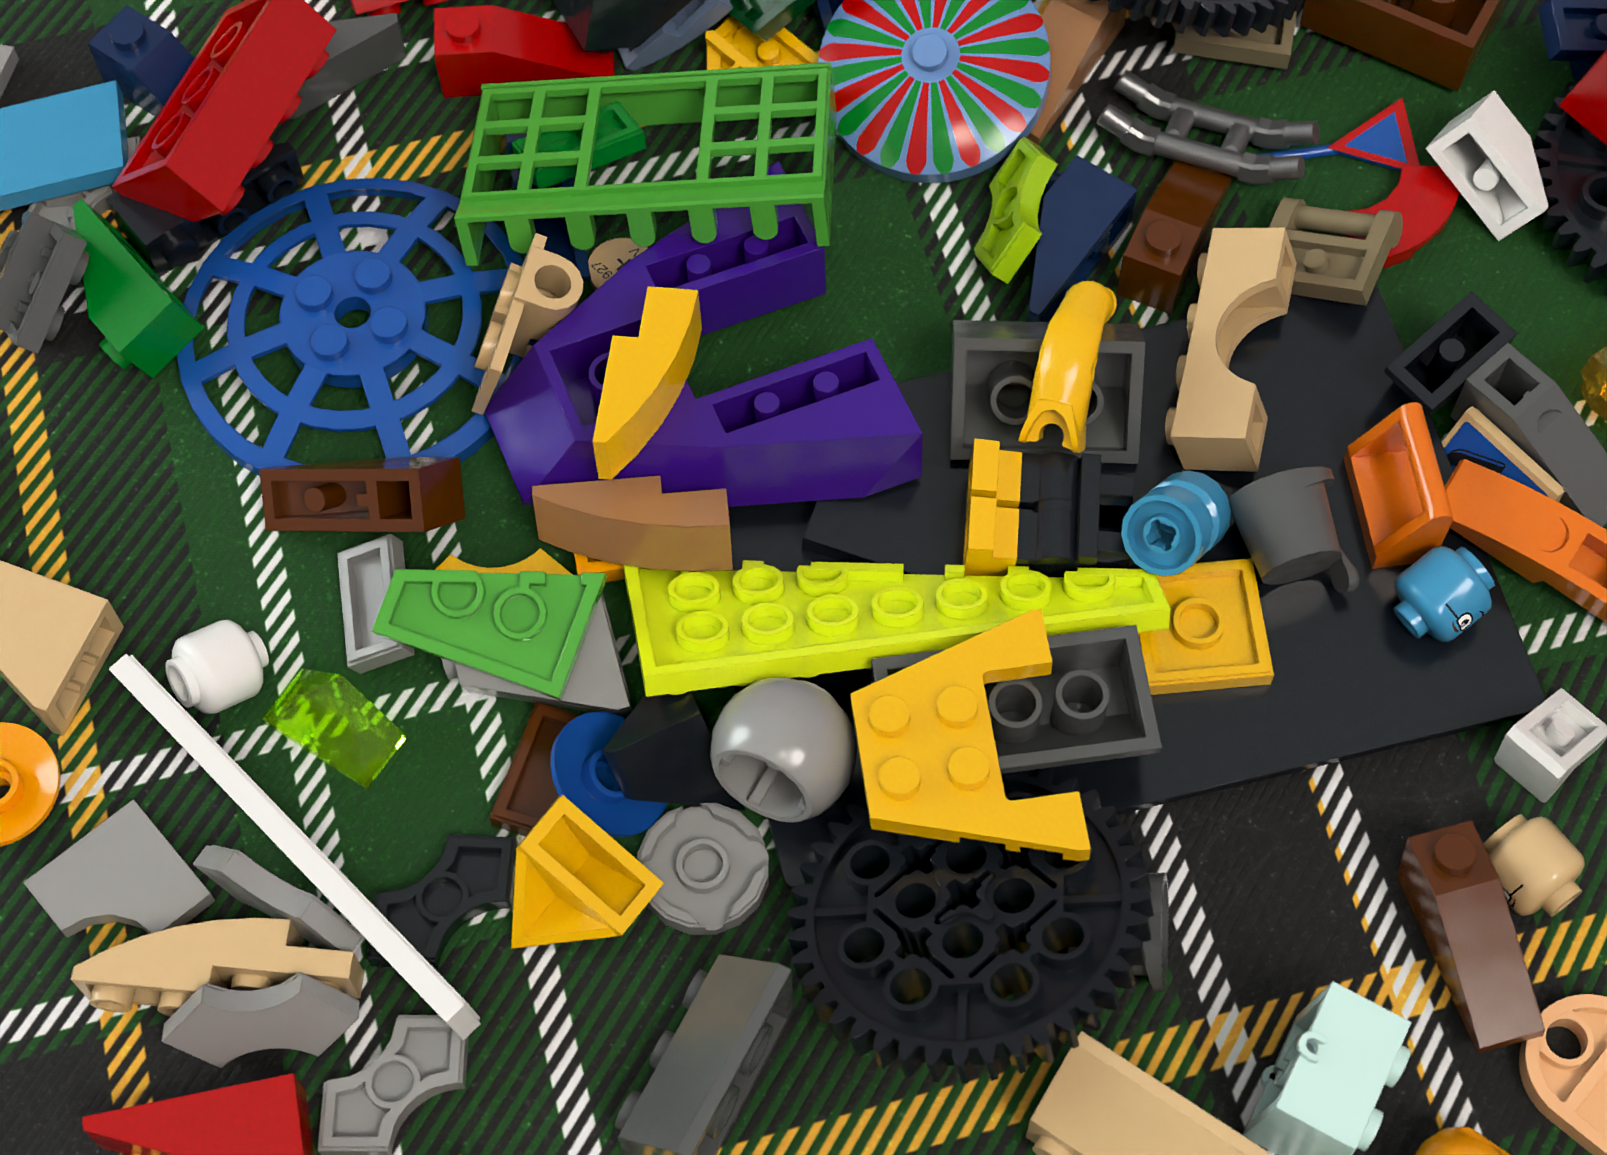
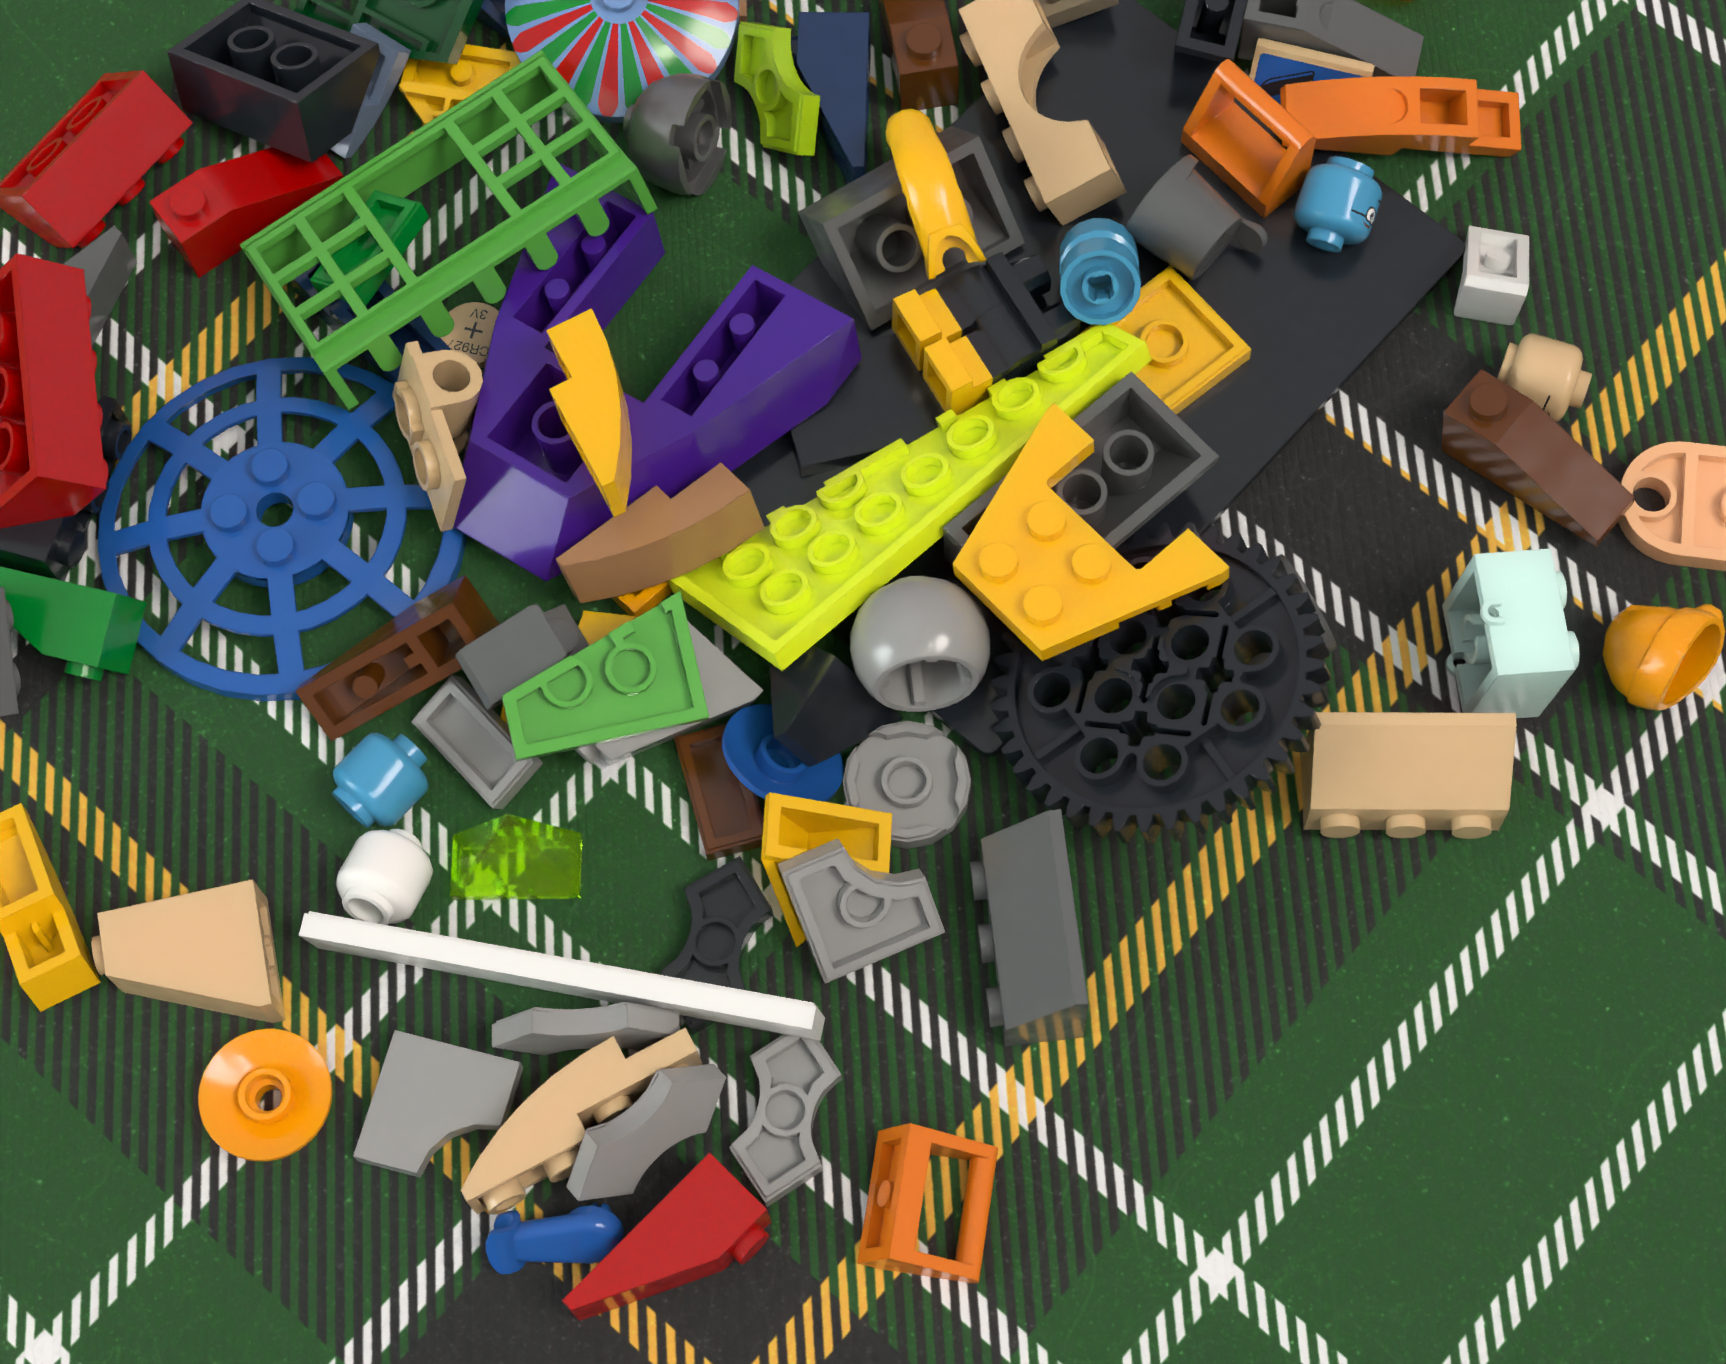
camera: 30 degrees left, 5 degrees up
(137, 1070) = (577, 1237): none -> blue piece
(274, 584) = (380, 779): none -> dark azure head
(451, 542) = (519, 651): none -> dark grey slope
(569, 948) = (856, 912): none -> light grey tile
(905, 199) = (677, 132): none -> flat silver cylinder

